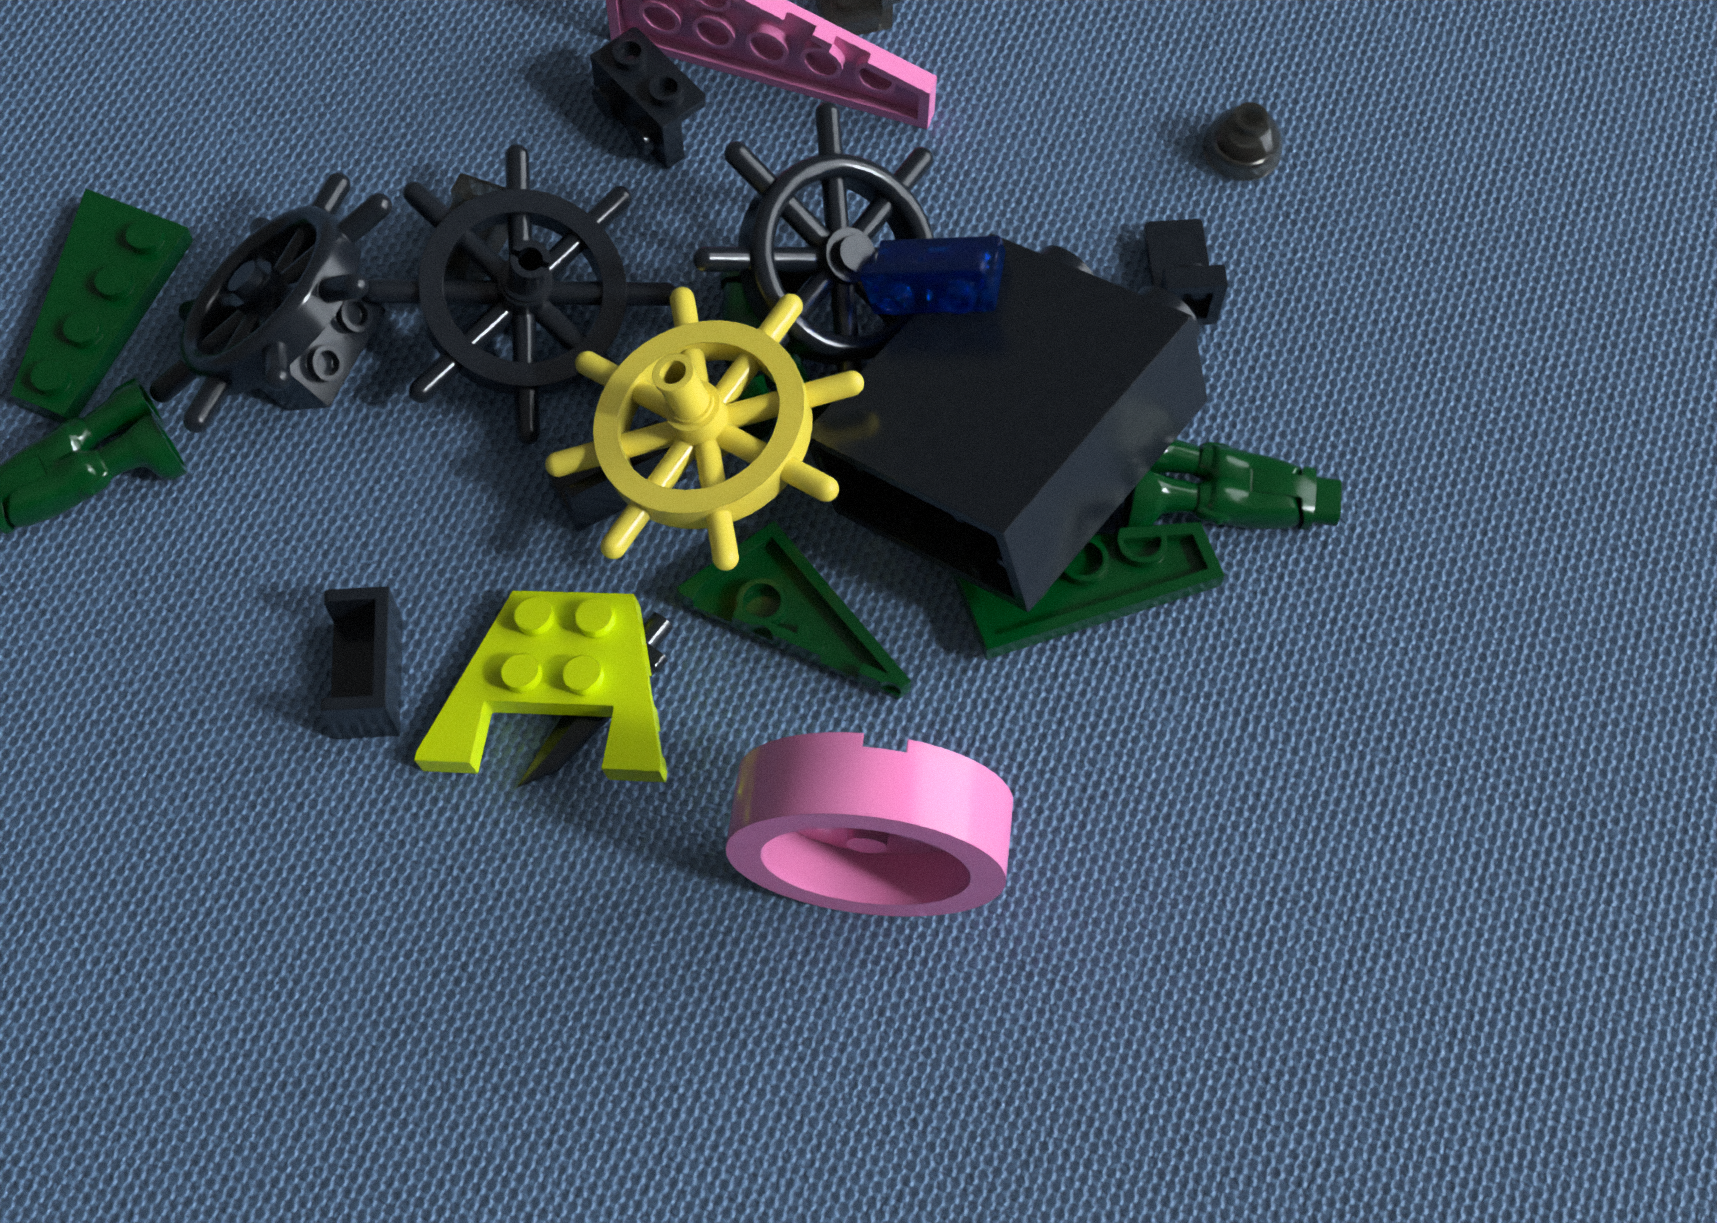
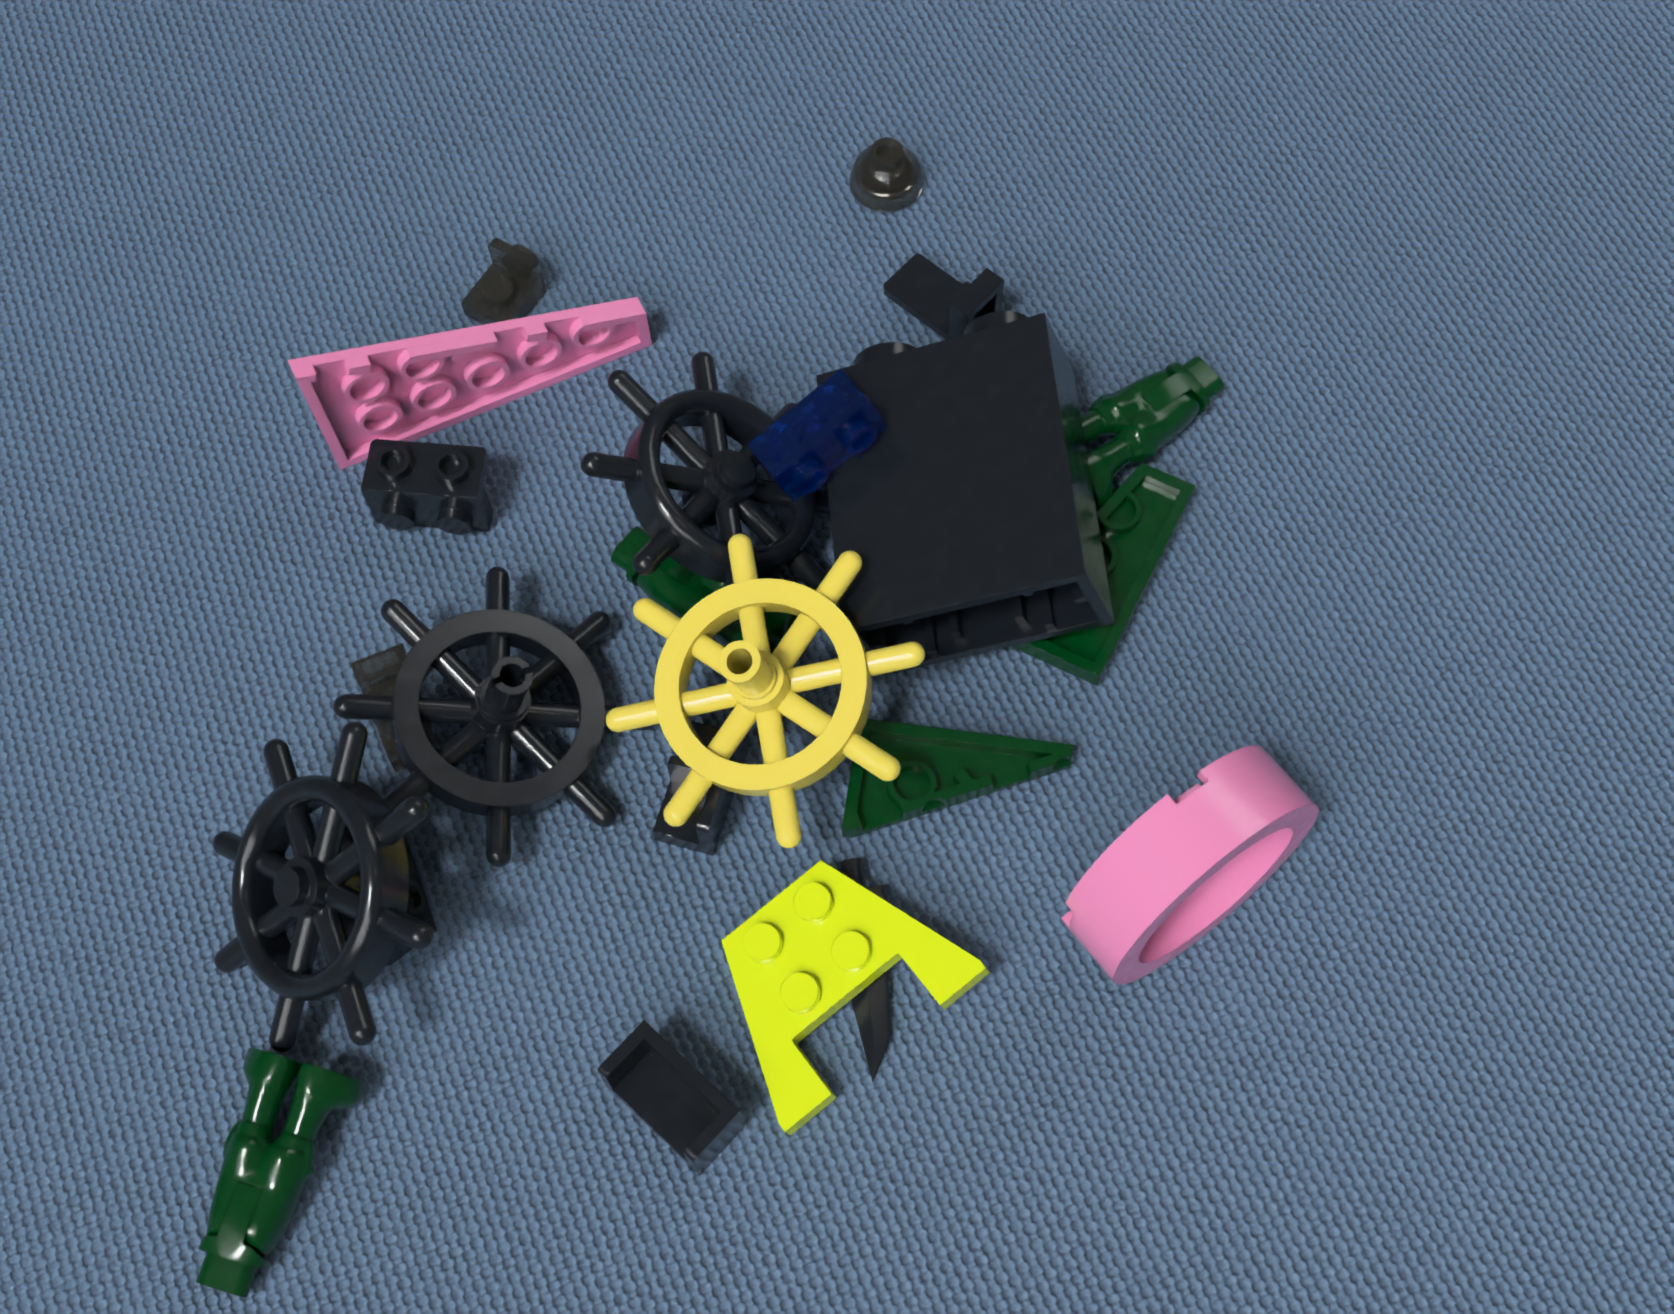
camera: 40 degrees left, 0 degrees up
(95, 301) = (136, 1019): dark green wing -> none

